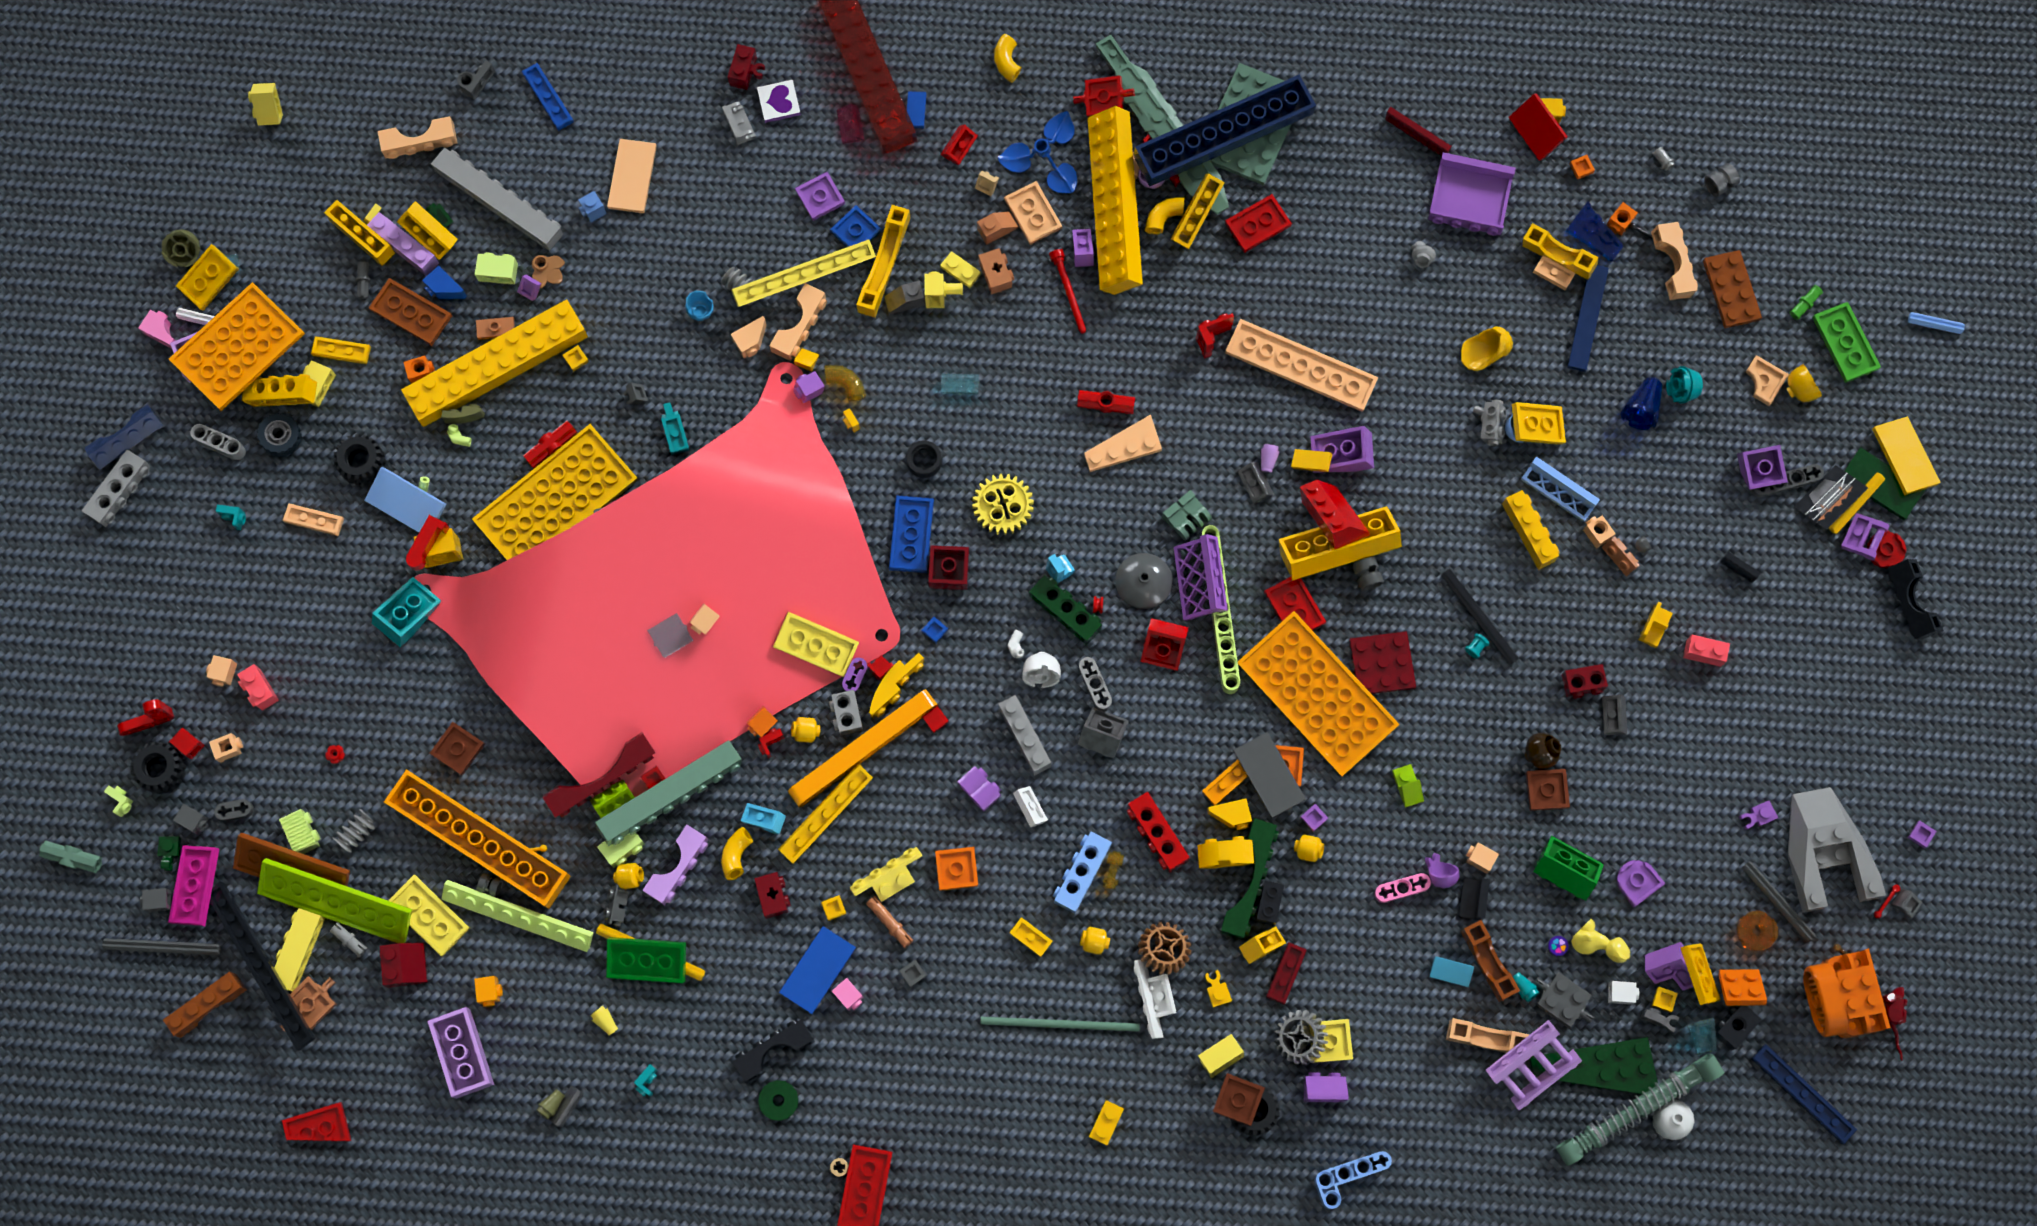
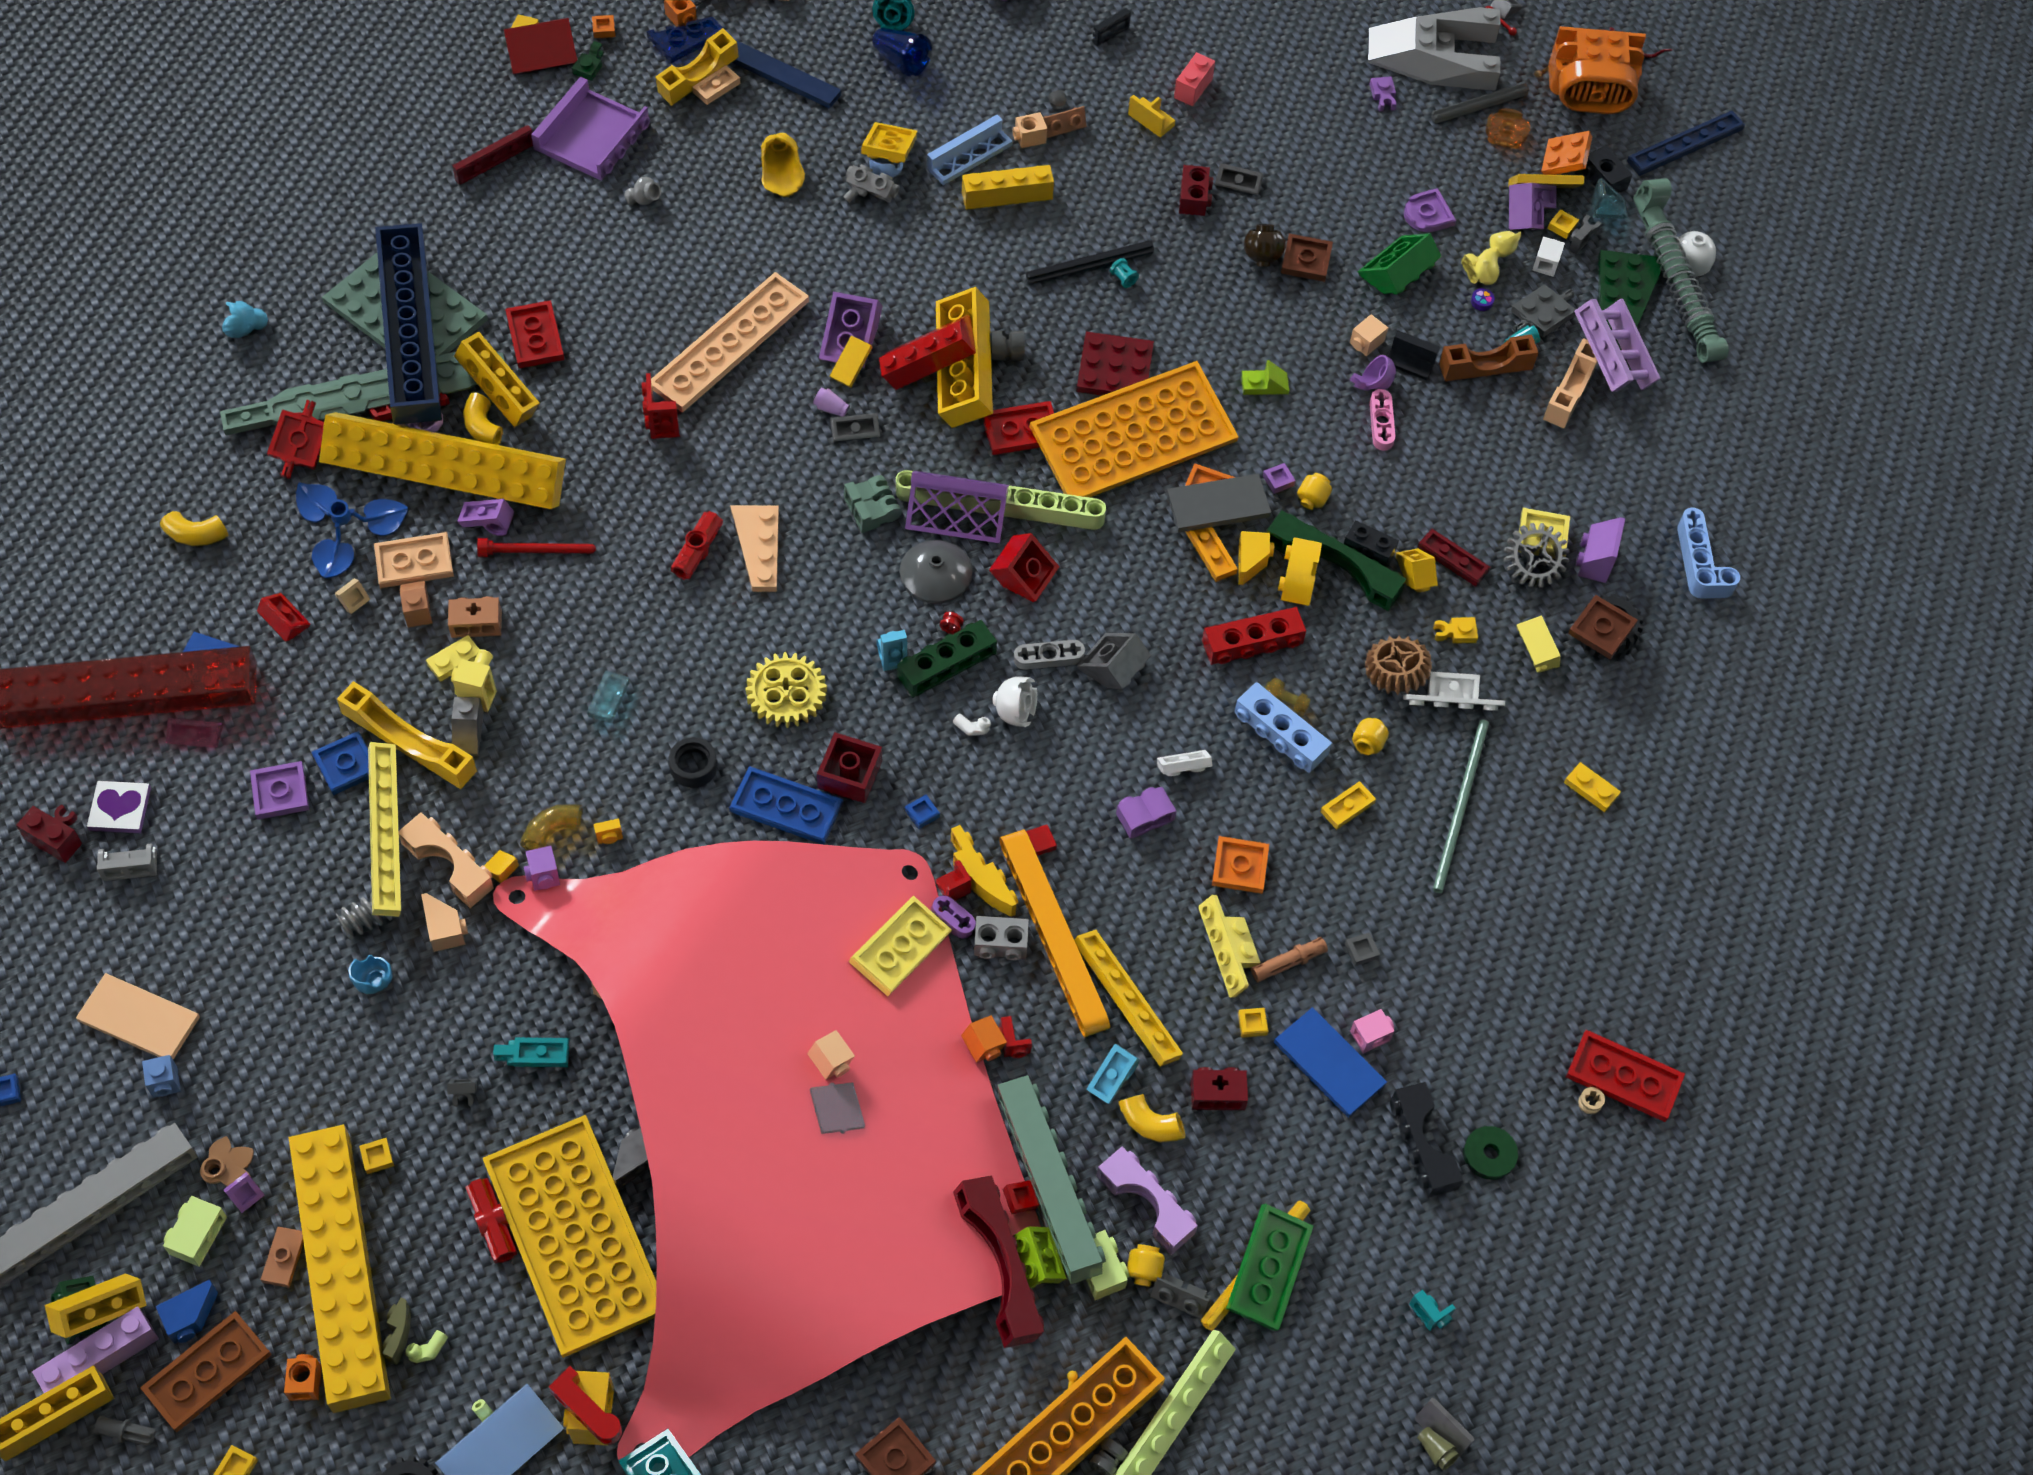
camera: 80 degrees left, 15 degrees down
(373, 212) = (26, 1387): light yellow plate -> none
(604, 1020) = (1336, 1347): light yellow cone -> none
(805, 729) = (1009, 992): yellow head -> none
(1024, 735) = (1093, 743): light grey brick -> none
(1197, 17) = (243, 319): none -> medium azure piece
(1451, 971) = (1488, 401): medium azure slope -> none
(1539, 170) = (589, 65): none -> dark green plate

